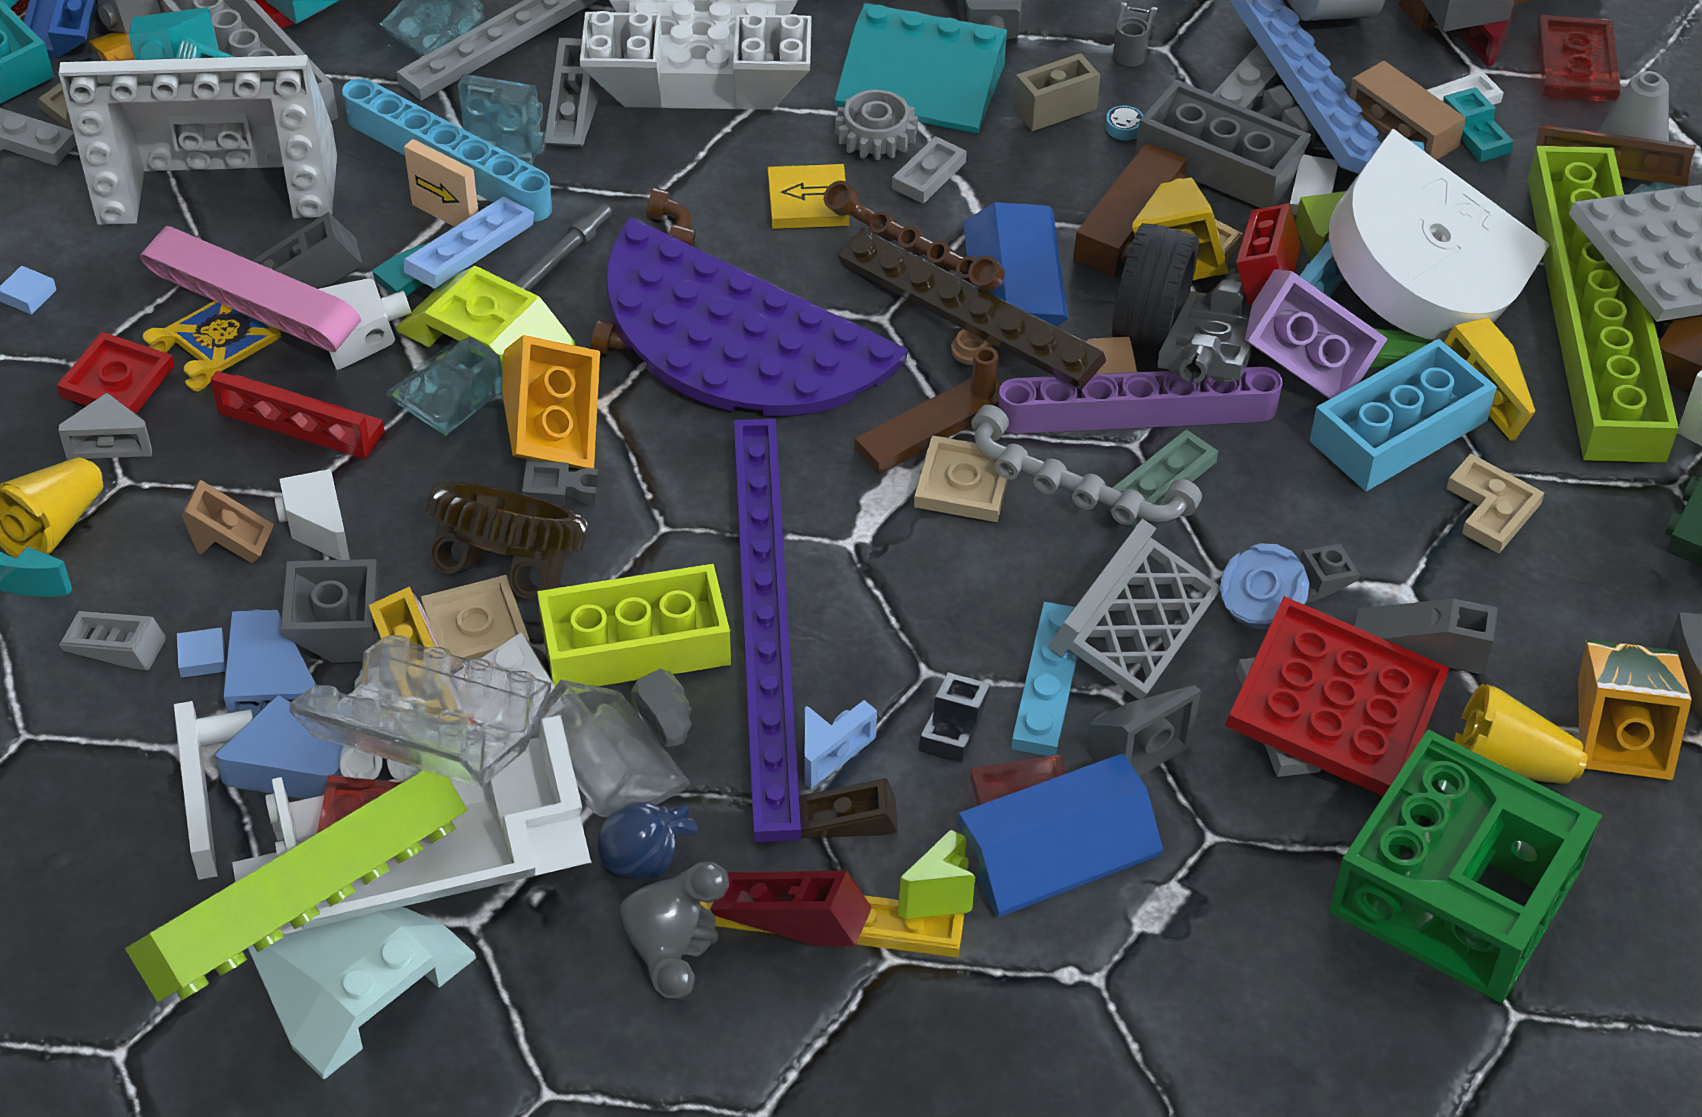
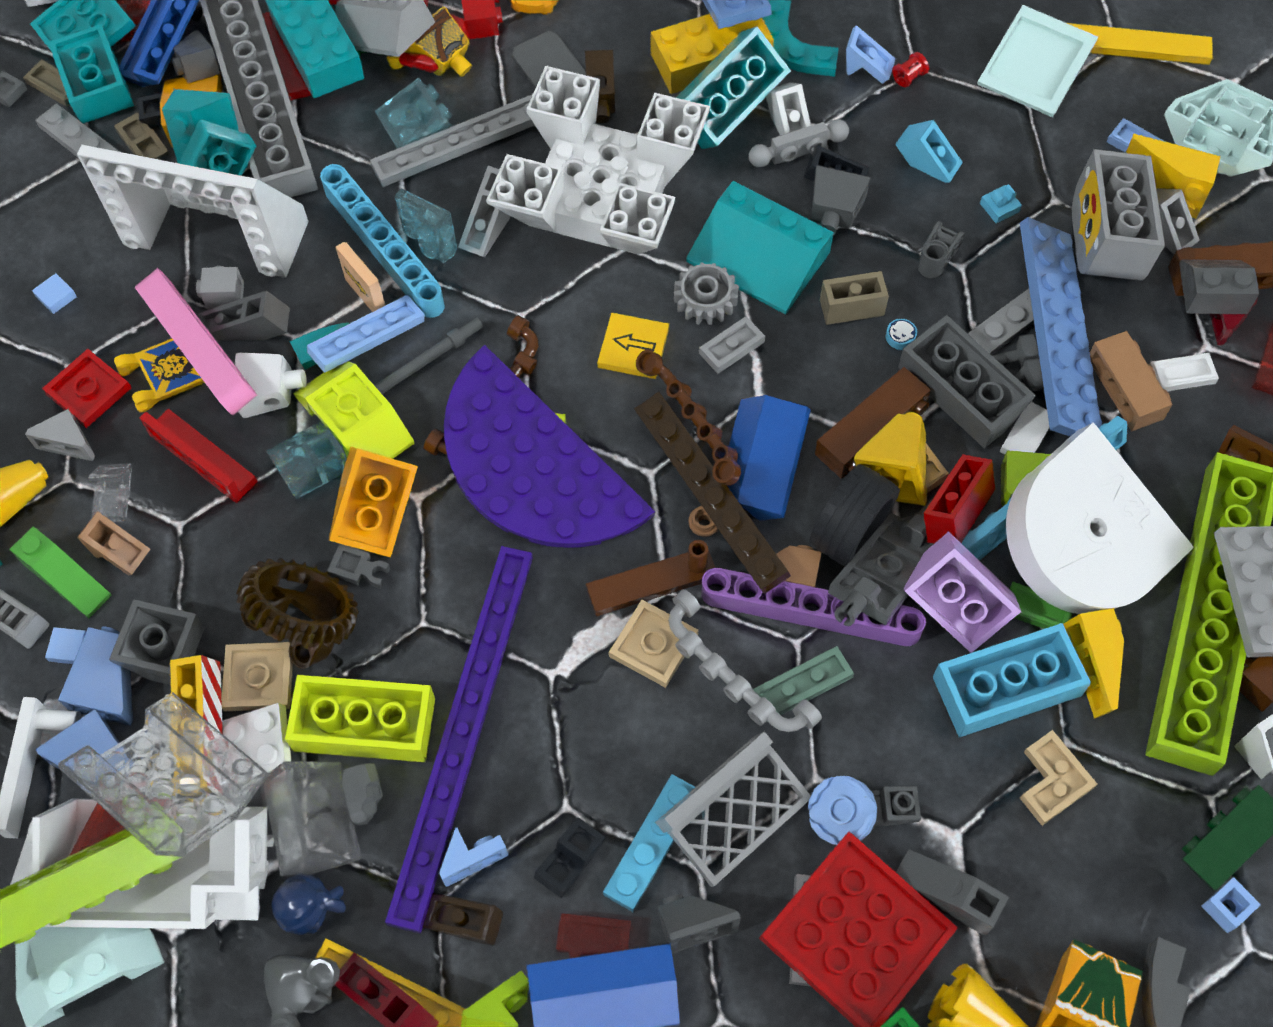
camera: 20 degrees right, 15 degrees up
(159, 571) = (60, 572): none -> bright green slope
(187, 469) = (111, 490): none -> clear slope
(252, 231) = (220, 286): none -> light grey brick
(313, 512) = (180, 546): white slope -> none
(1480, 132) = (1185, 413): teal slope -> none

